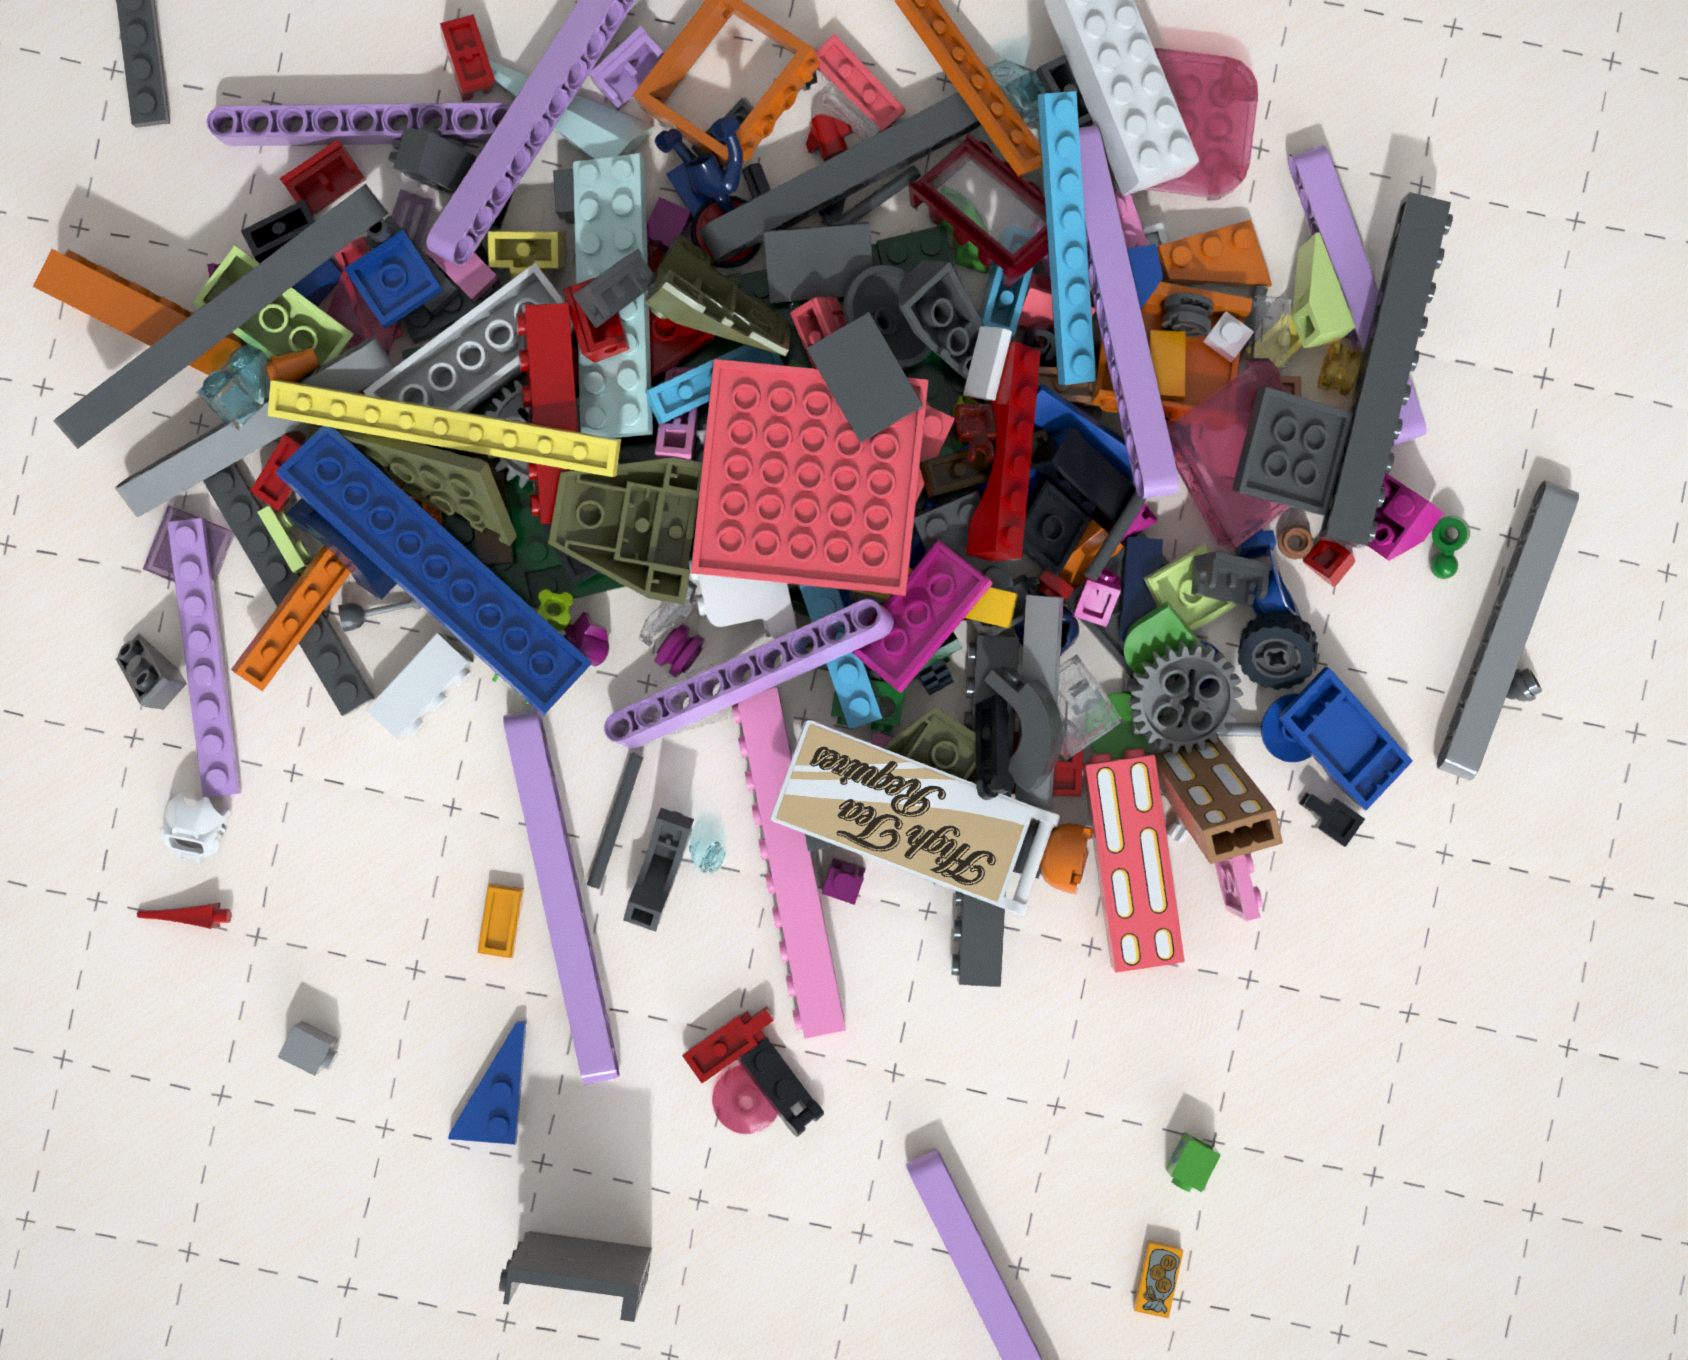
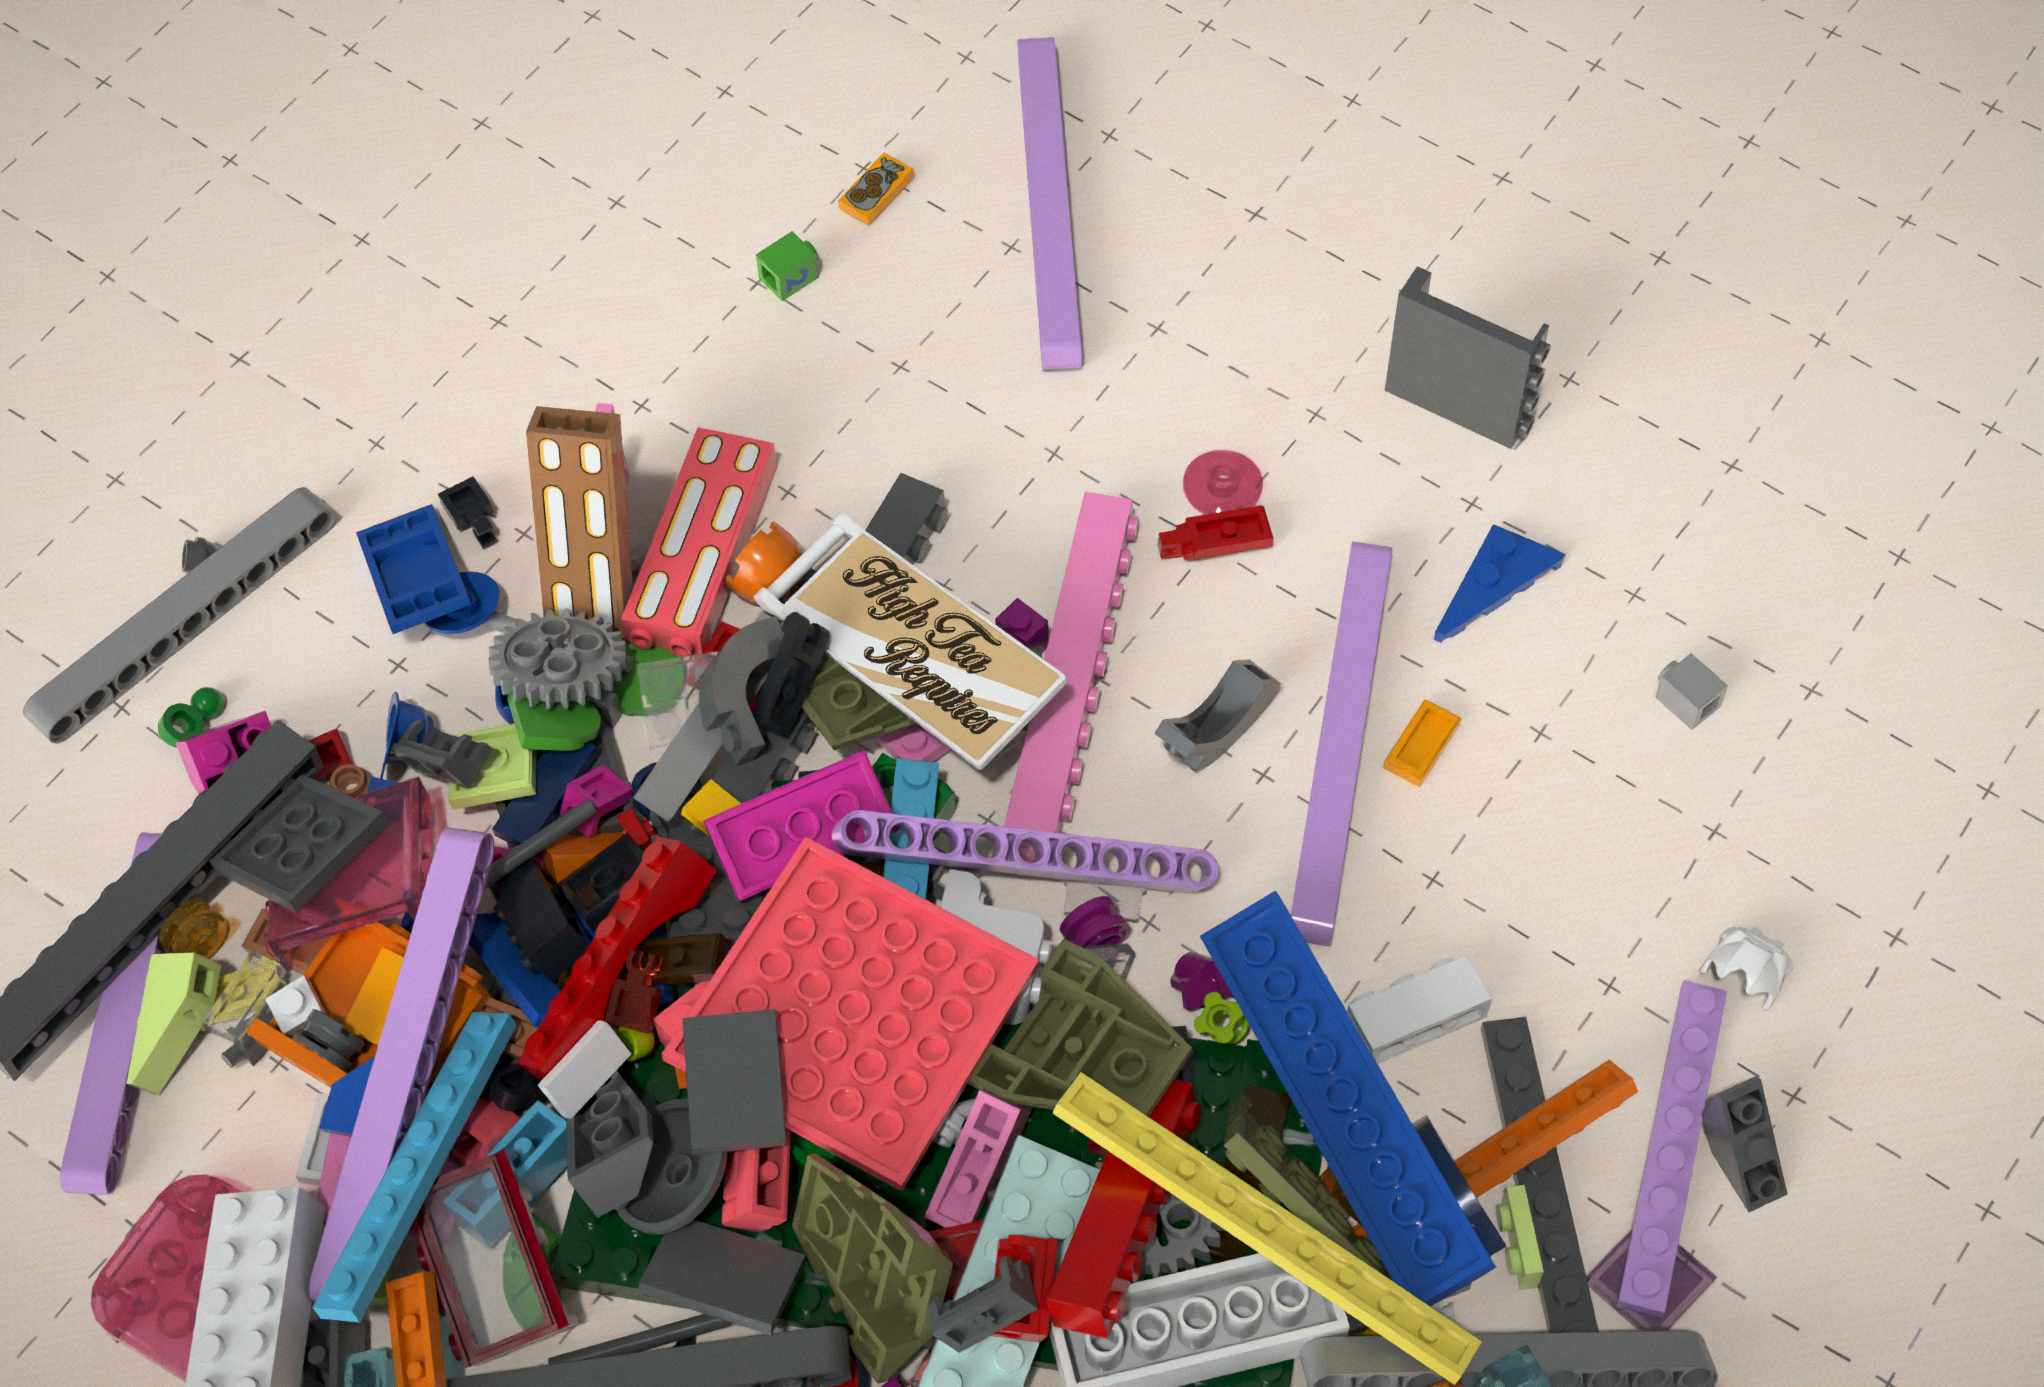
camera: 160 degrees left, 30 degrees down
(202, 916) = (1775, 872): red piece -> none
(268, 484) = (1495, 1302): red hinge -> none
(353, 615) = (1469, 1119): hinge -> none
(615, 821) = (1249, 792): dark grey bar -> none
(694, 386) = (943, 1174): medium azure plate -> none
(707, 855) = (1155, 713): clear light blue plate -> none
(780, 1086) = (1179, 474): black plate -> none
(1217, 256) = (257, 1112): orange wing -> none
(1277, 650) = (432, 673): black wheel -> none

